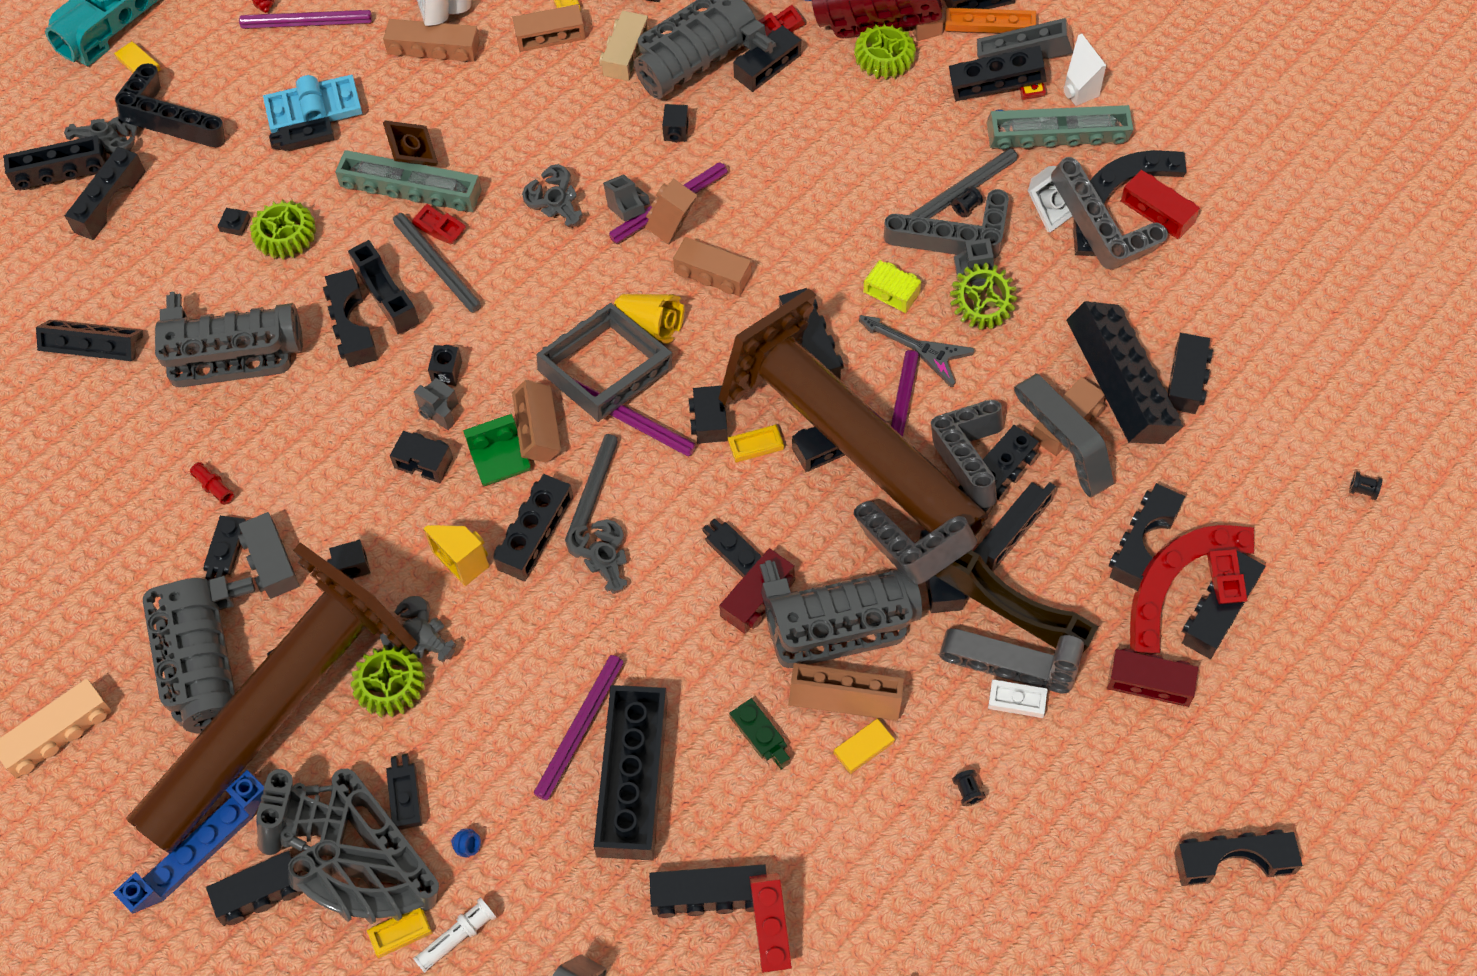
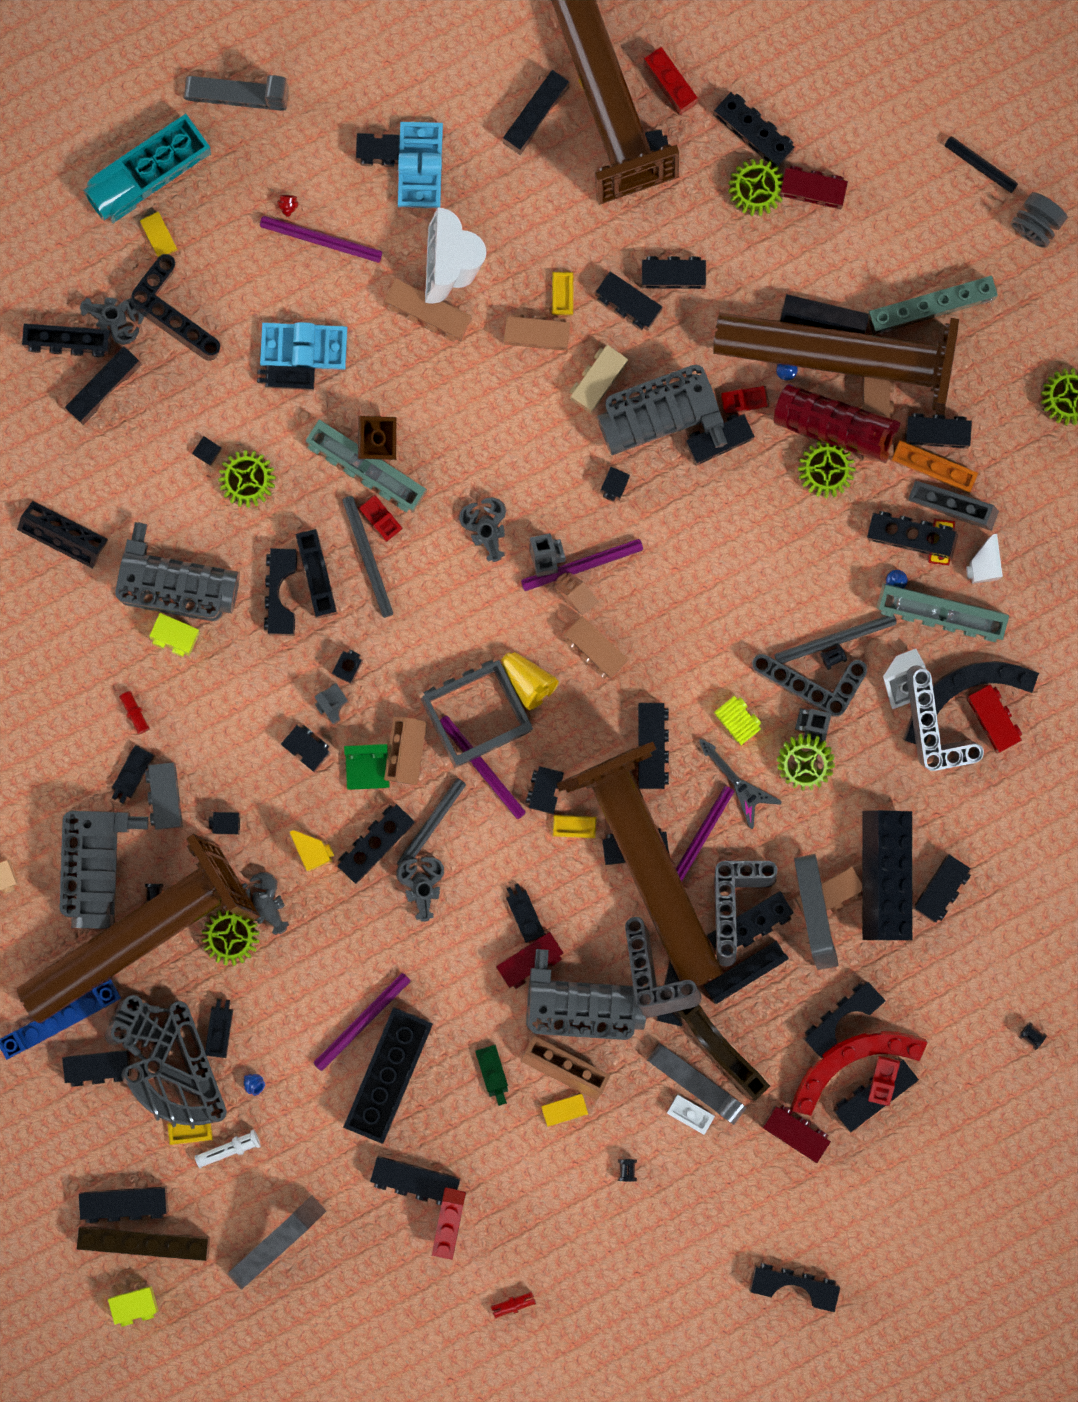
camera: 15 degrees right, 25 degrees up
(238, 390) = (174, 635): none -> neon yellow brick

